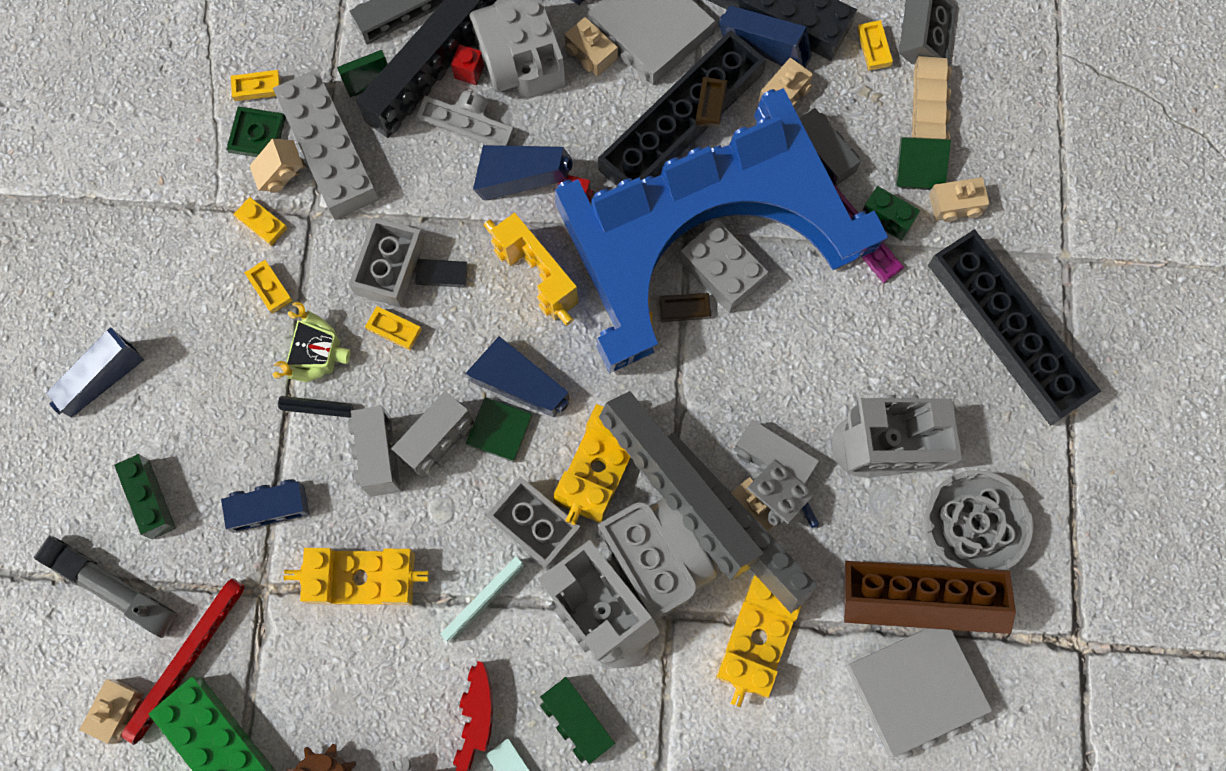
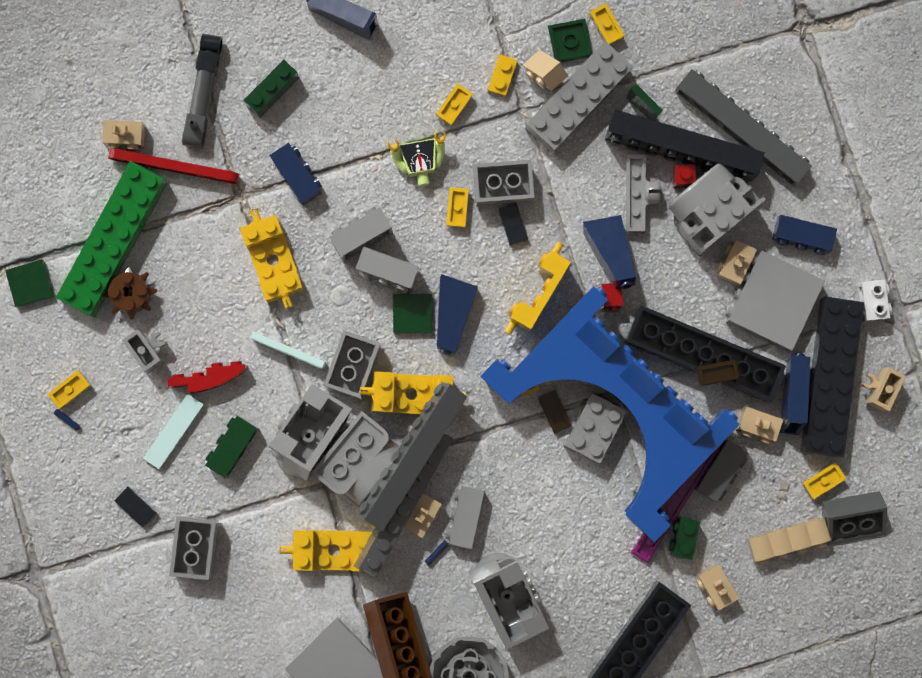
camera: 65 degrees right, 10 degrees up
(315, 406) = (379, 176): black axle -> none
(780, 492) = (436, 529): light grey hinge -> none
(922, 162) = (736, 549): dark green tile -> none

